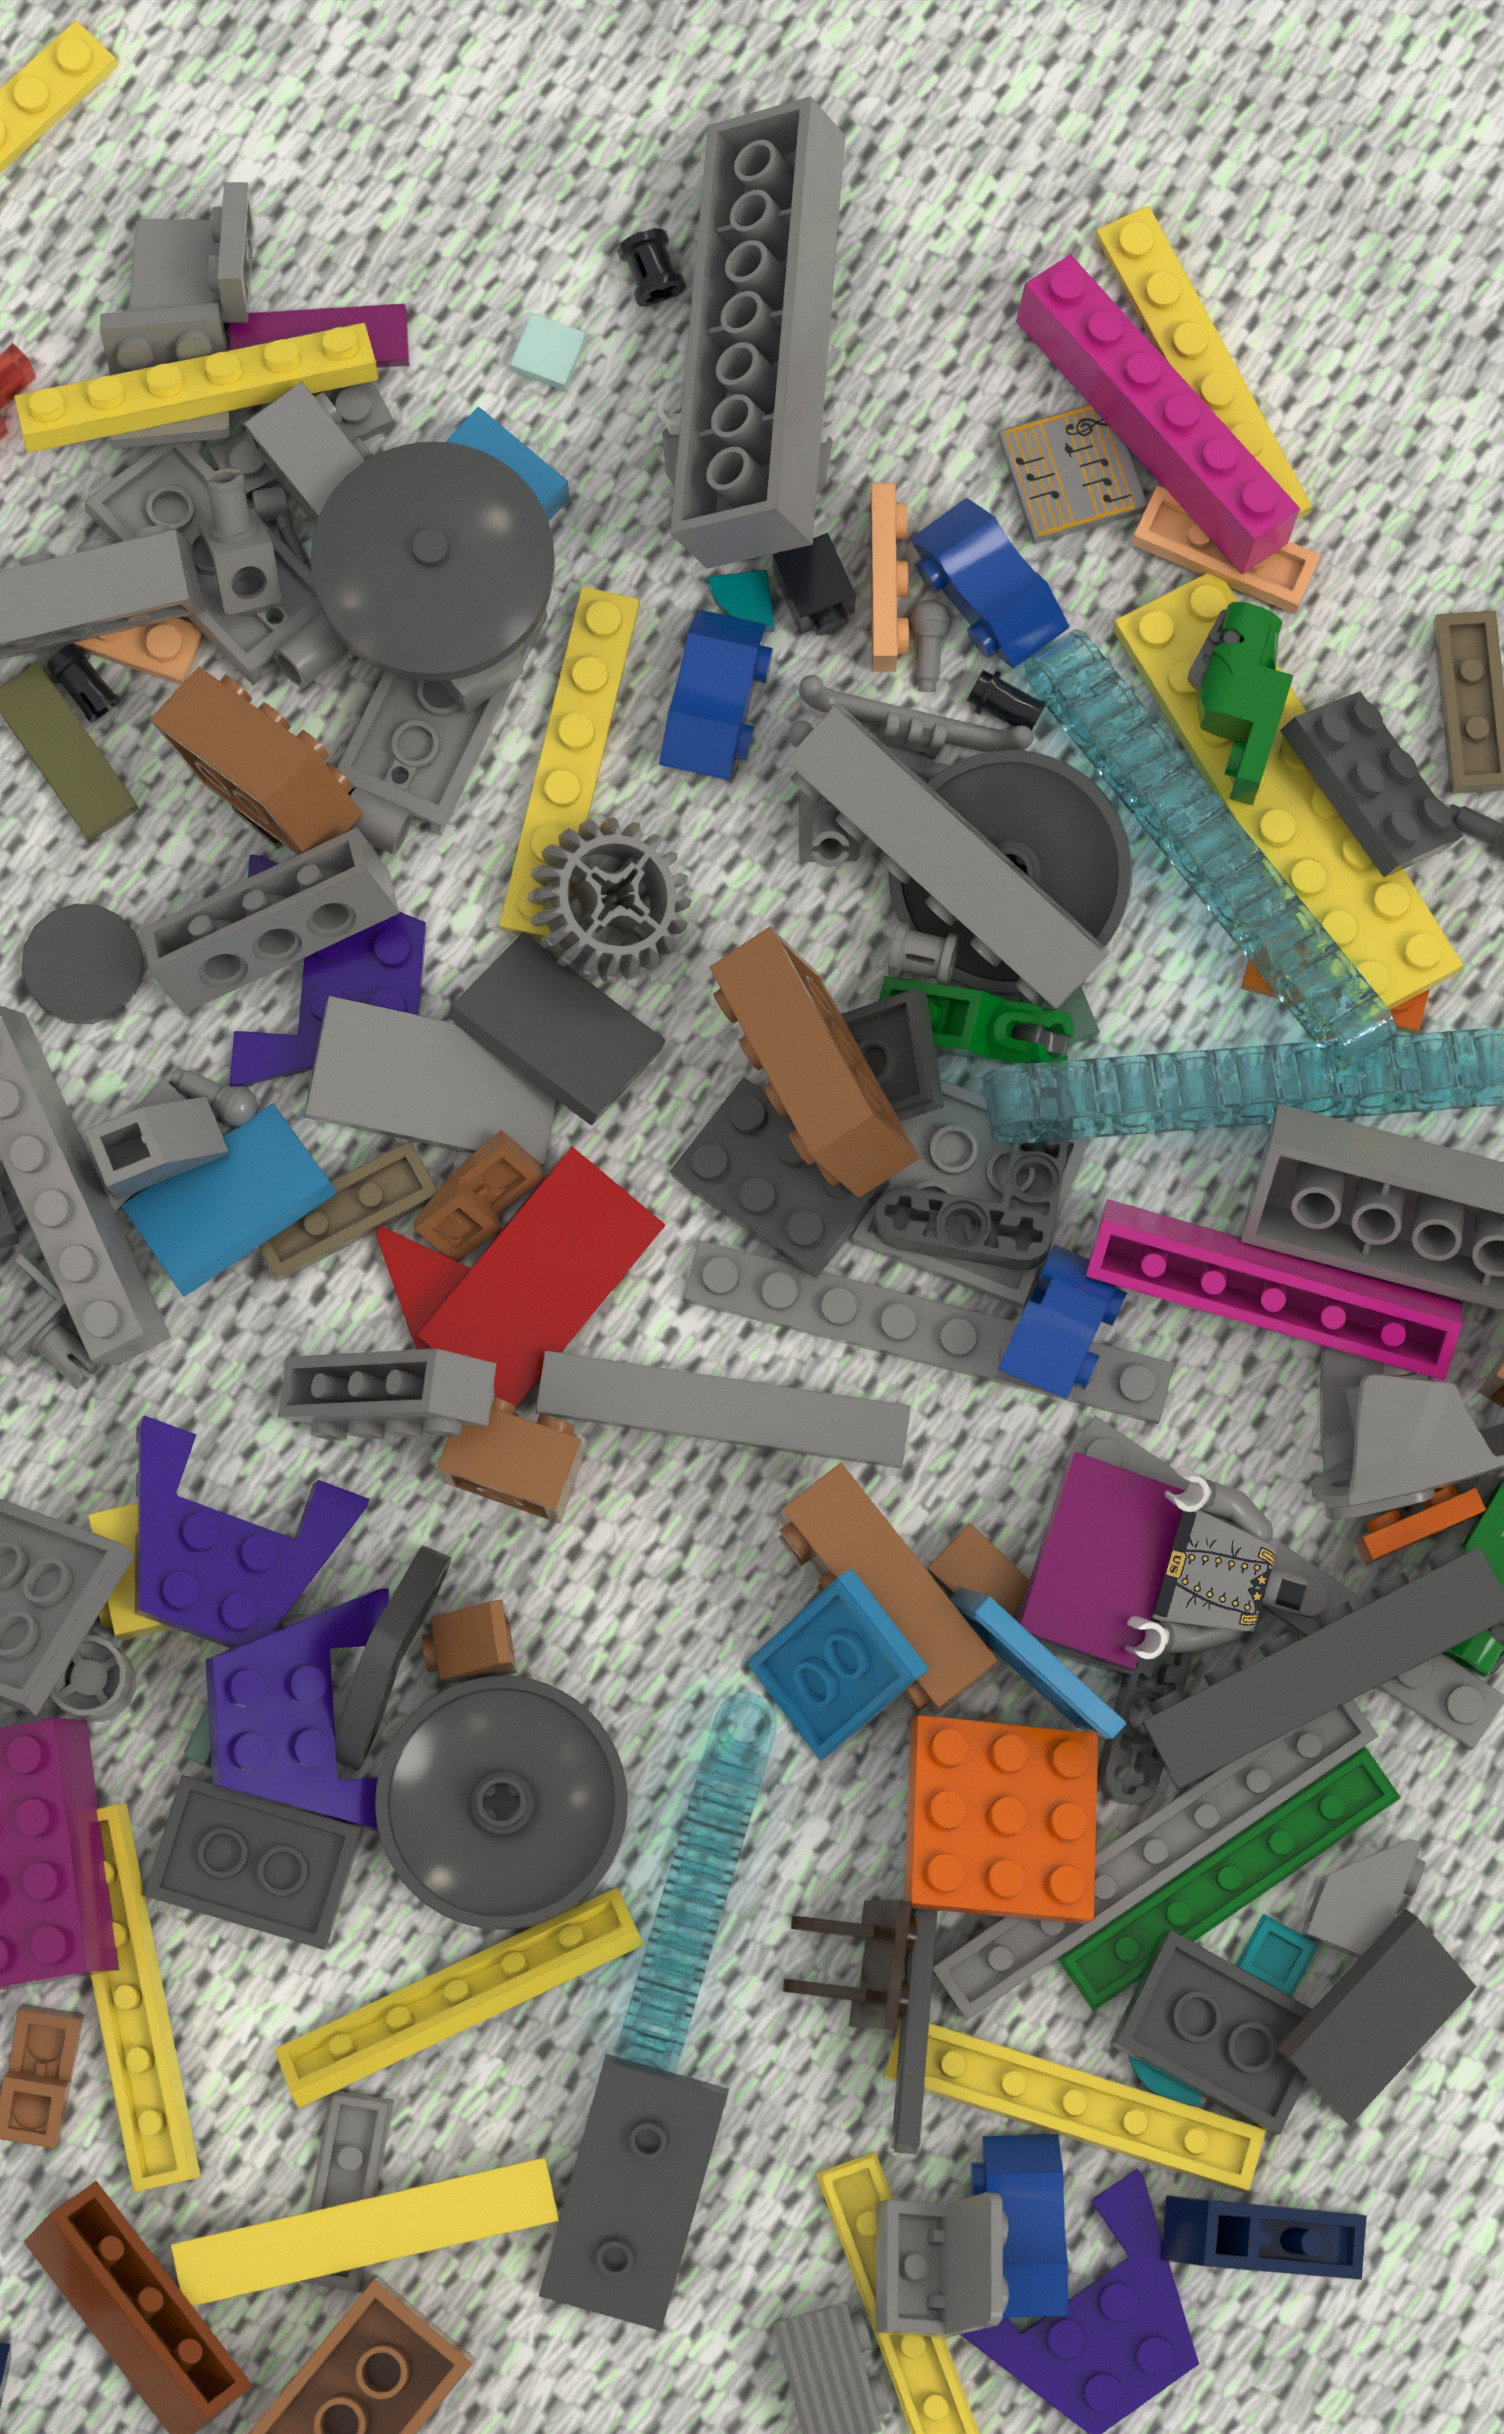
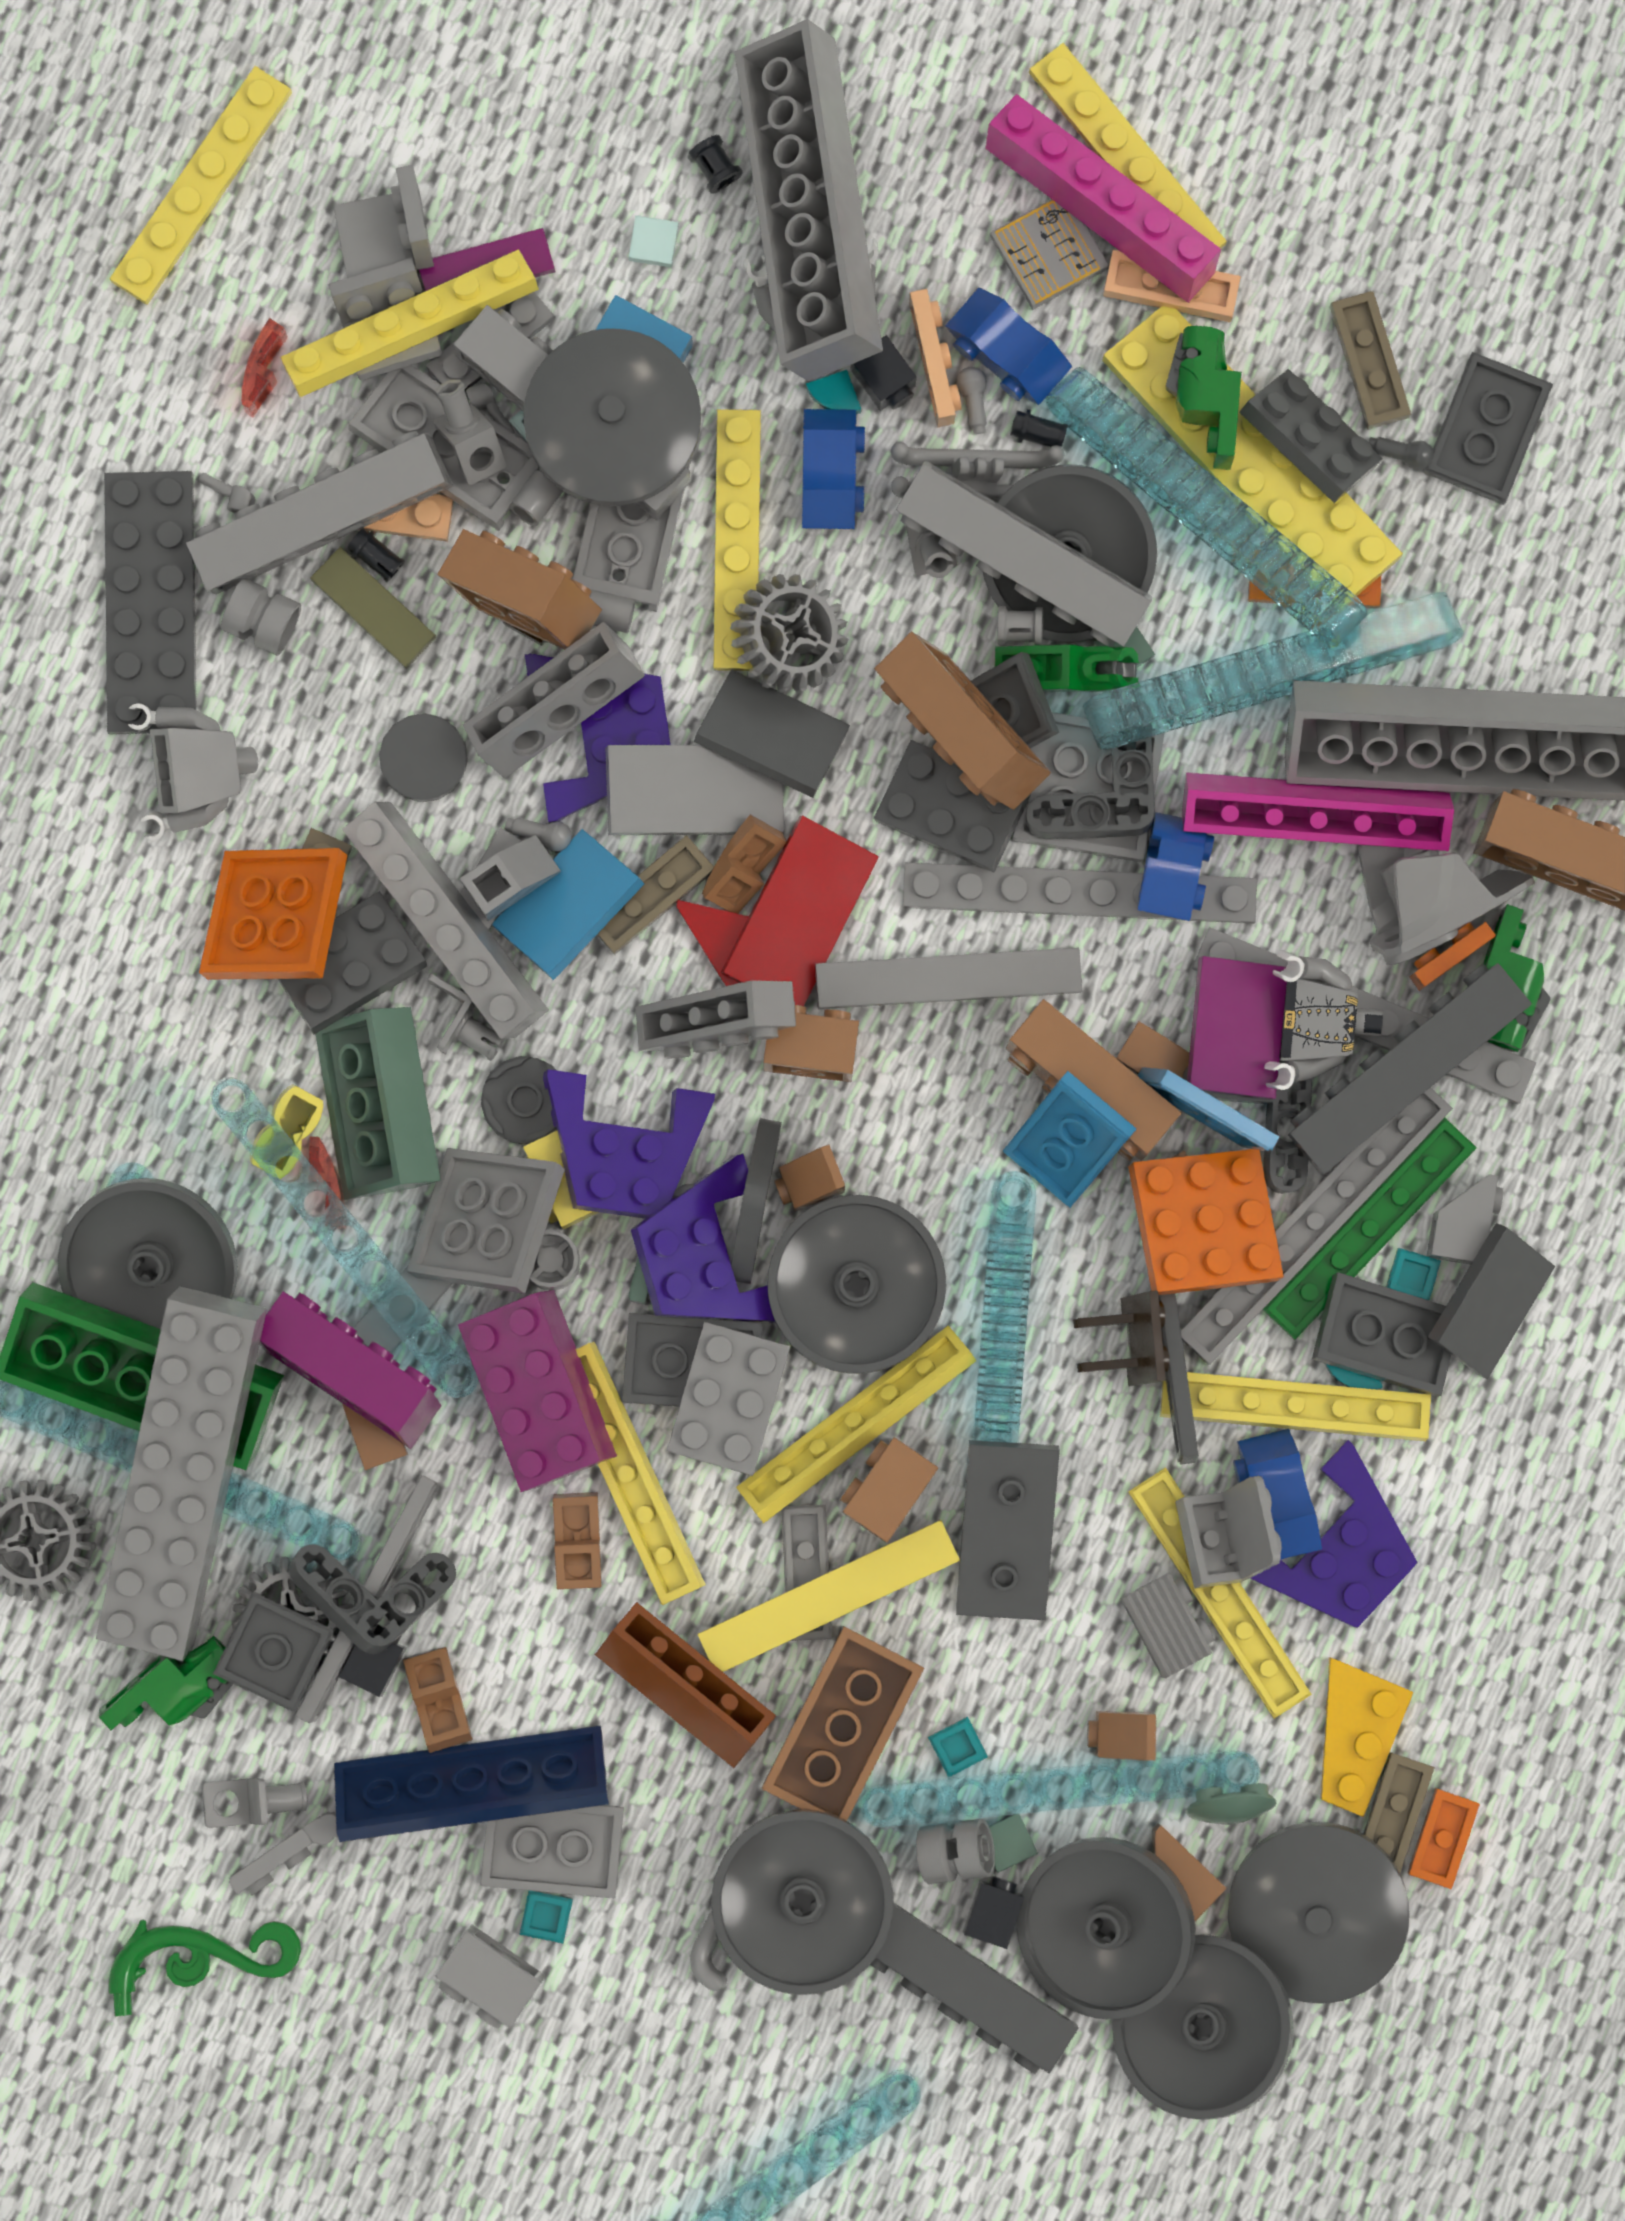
camera: 15 degrees left, 5 degrees up
(73, 1444) = (525, 1114): none -> dark grey tile
(289, 1924) = (728, 1398): none -> light grey plate
(479, 2099) = (889, 1488): none -> medium nougat brick
(1263, 2238) = (1444, 1468): dark blue slope -> none

